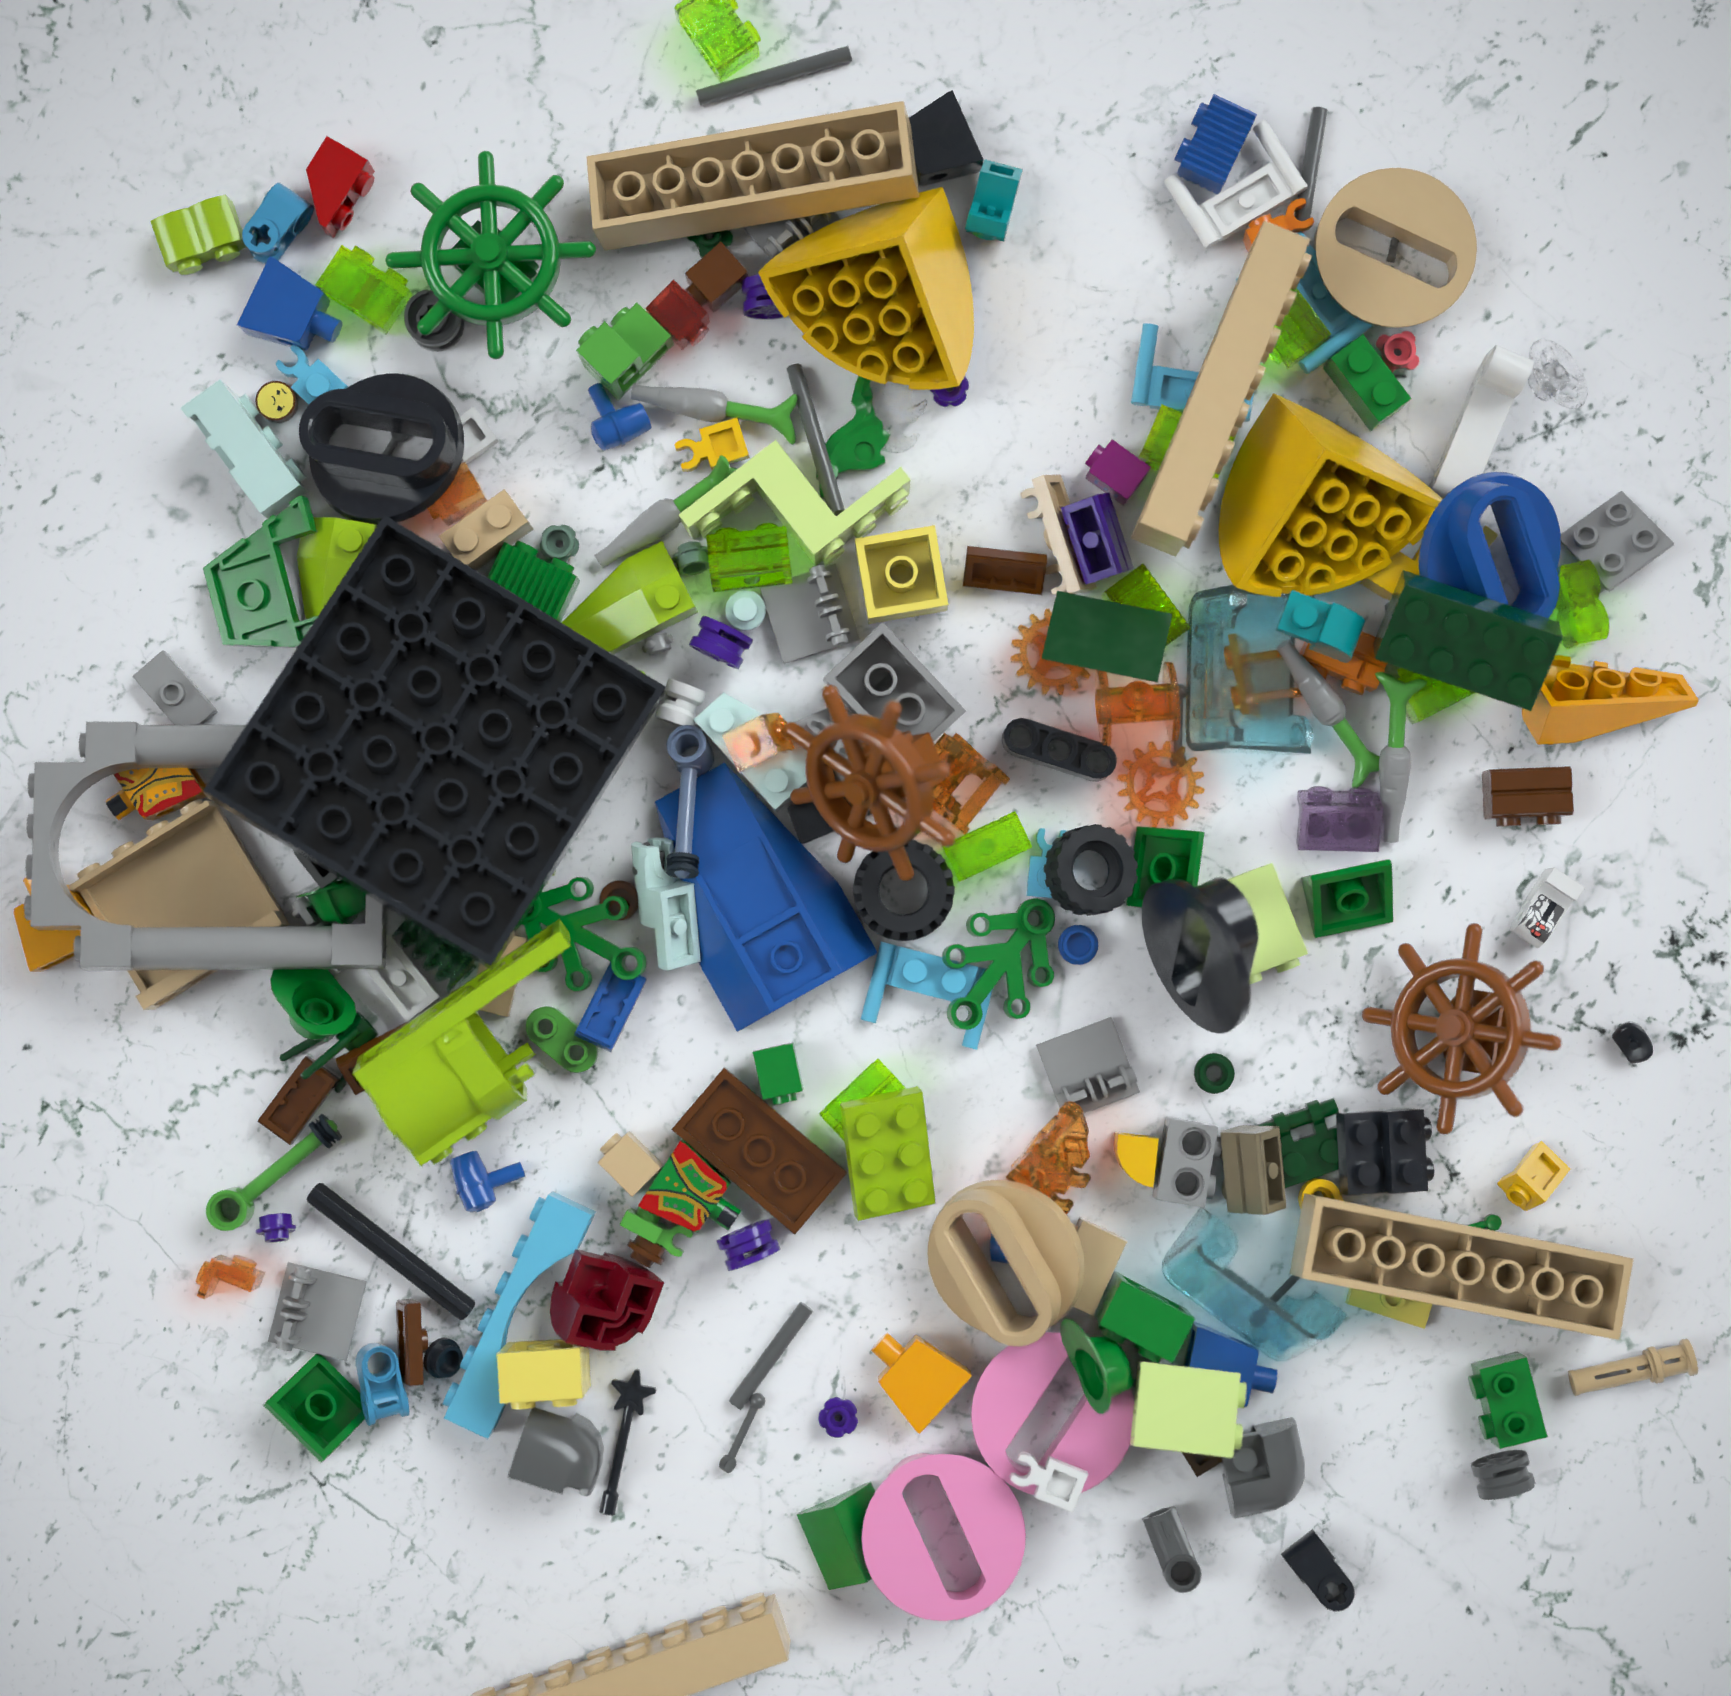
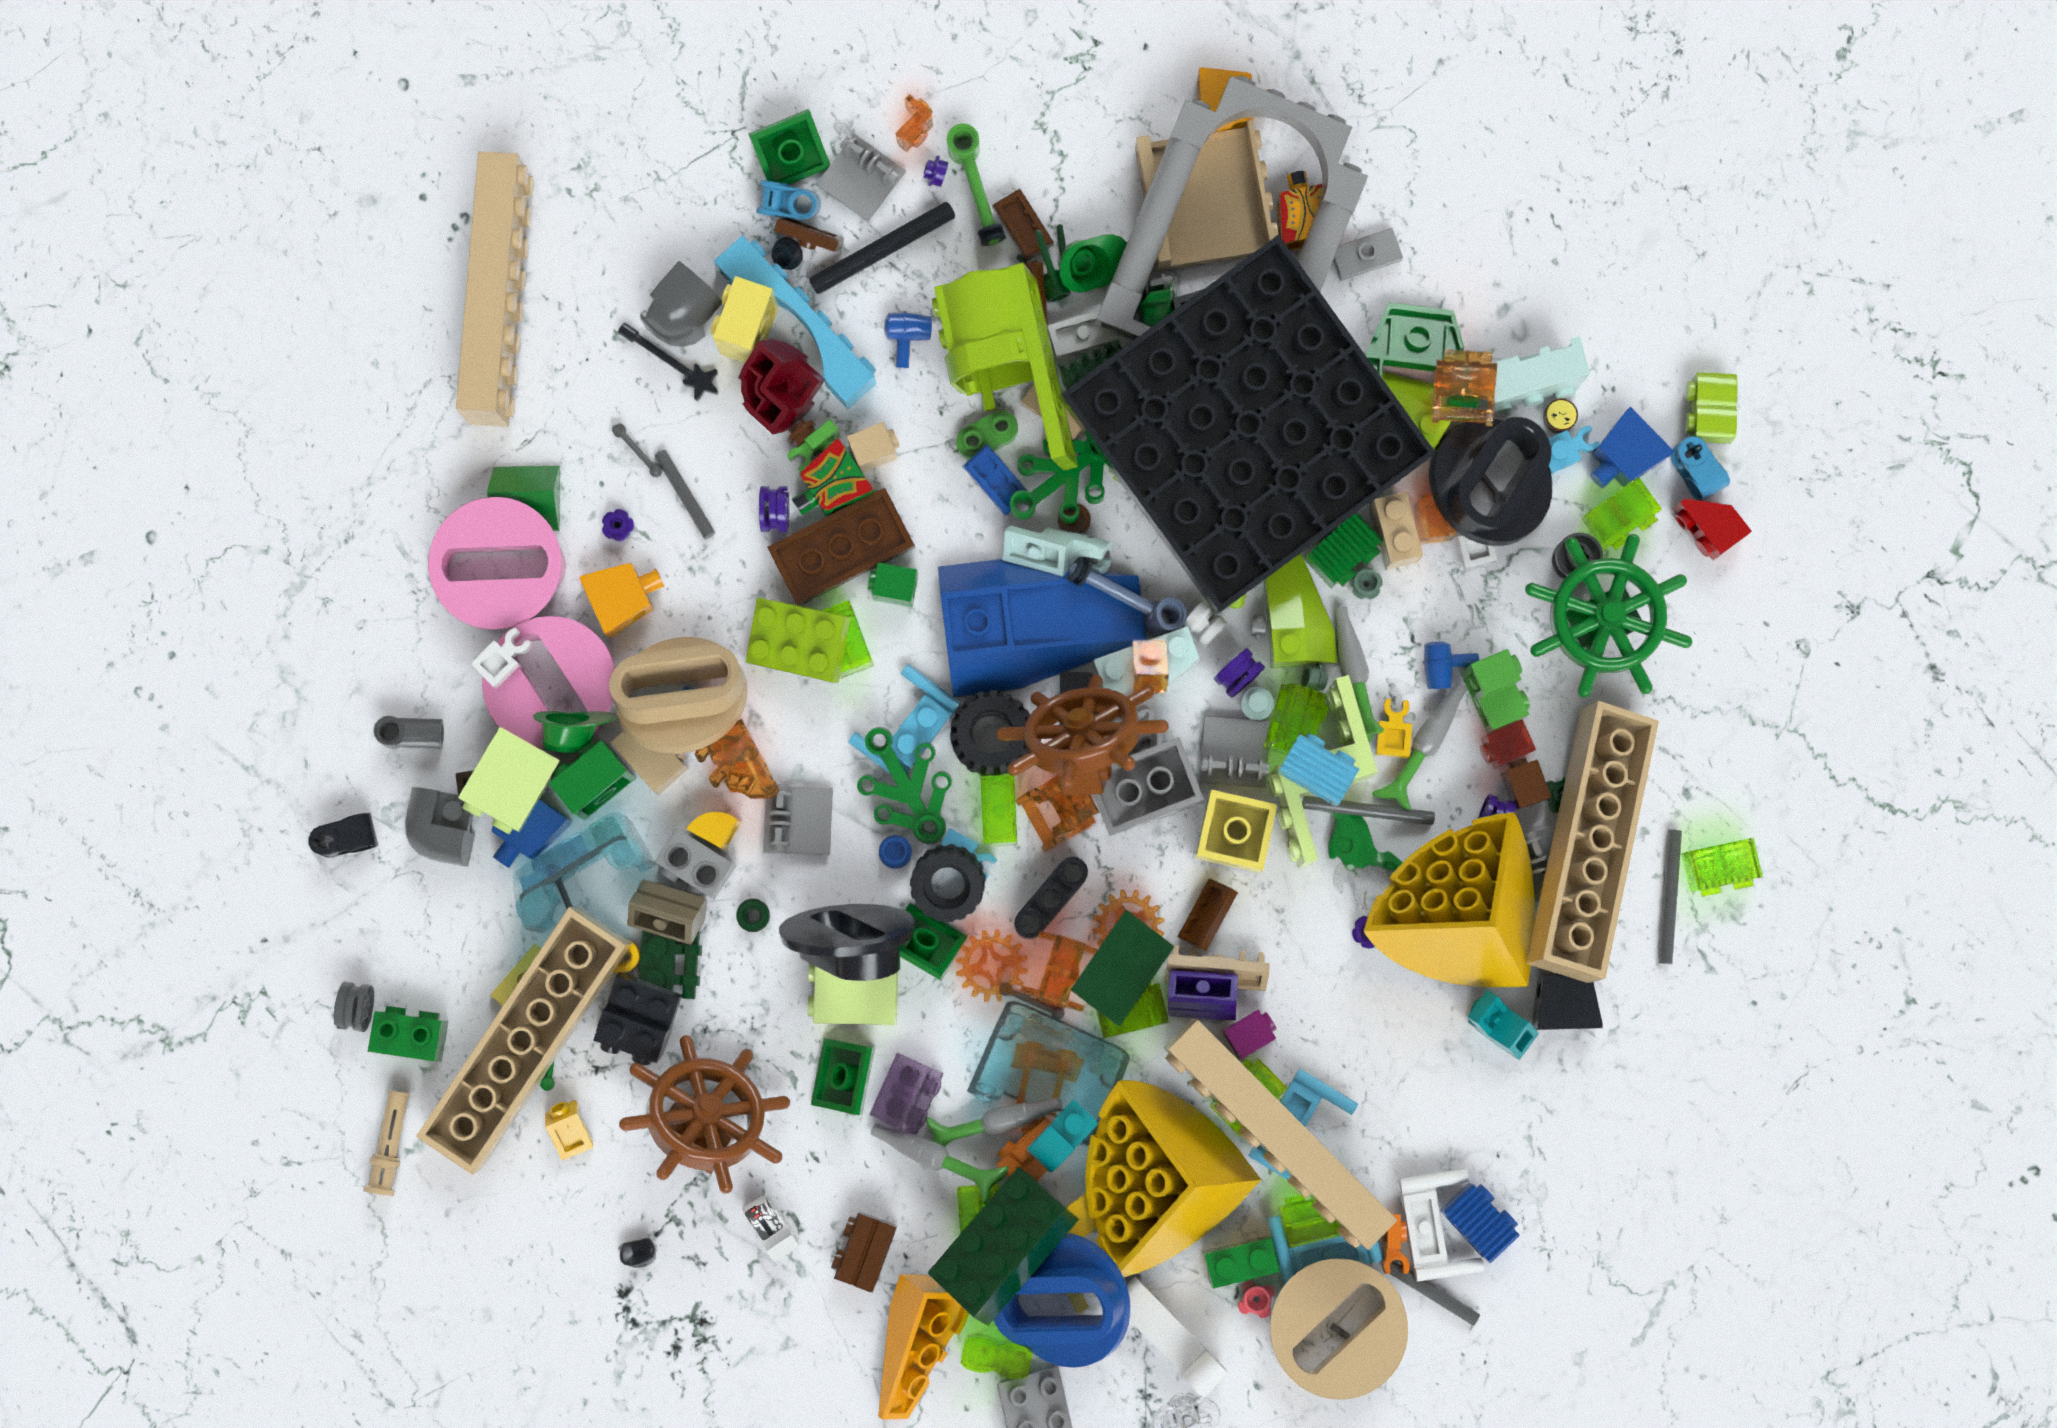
camera: 110 degrees right, 5 degrees down
(278, 520) = (1465, 374): none -> clear orange piece
(801, 503) = (1319, 769): none -> medium azure brick

